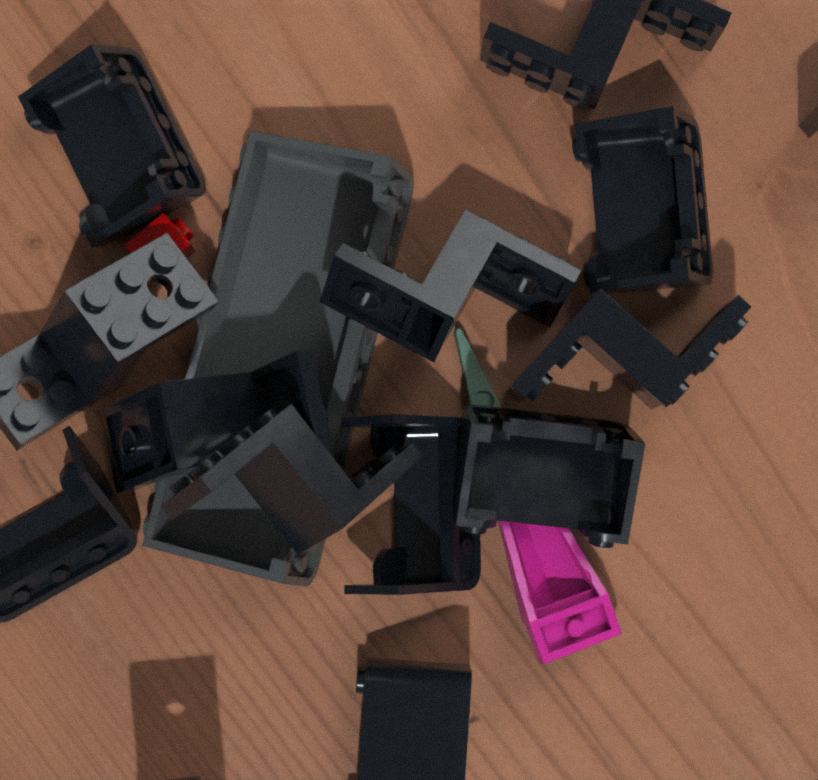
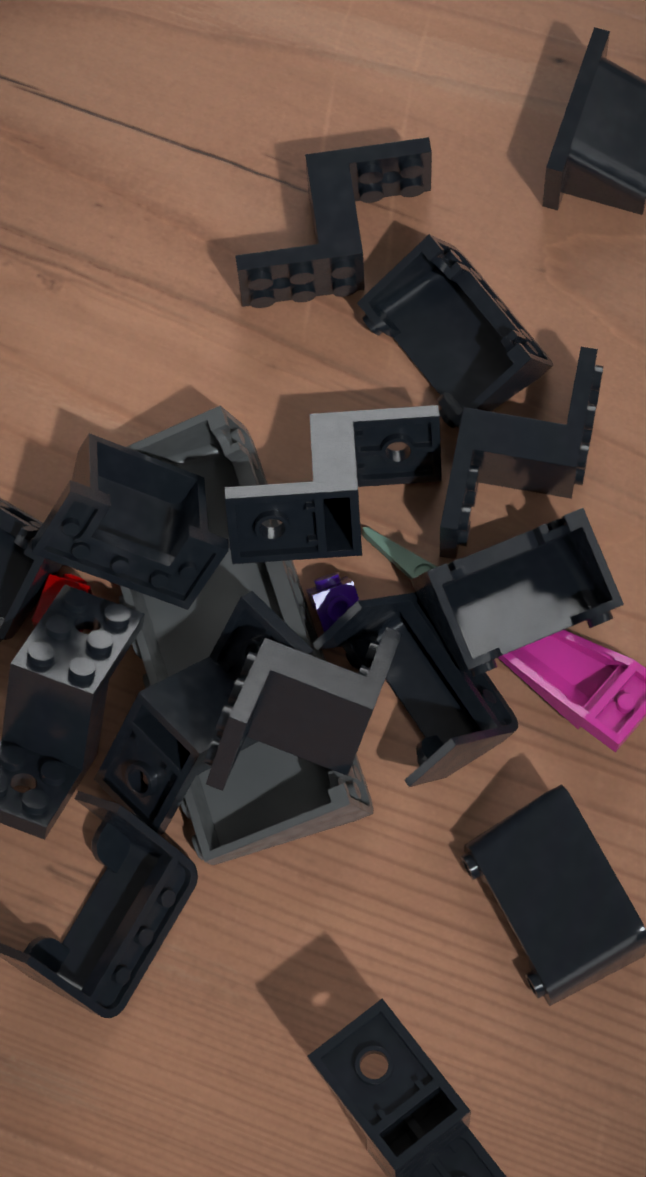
camera: 30 degrees left, 15 degrees down
(255, 214) = (133, 524): none -> black windscreen
(389, 384) = (332, 598): none -> dark purple bracket

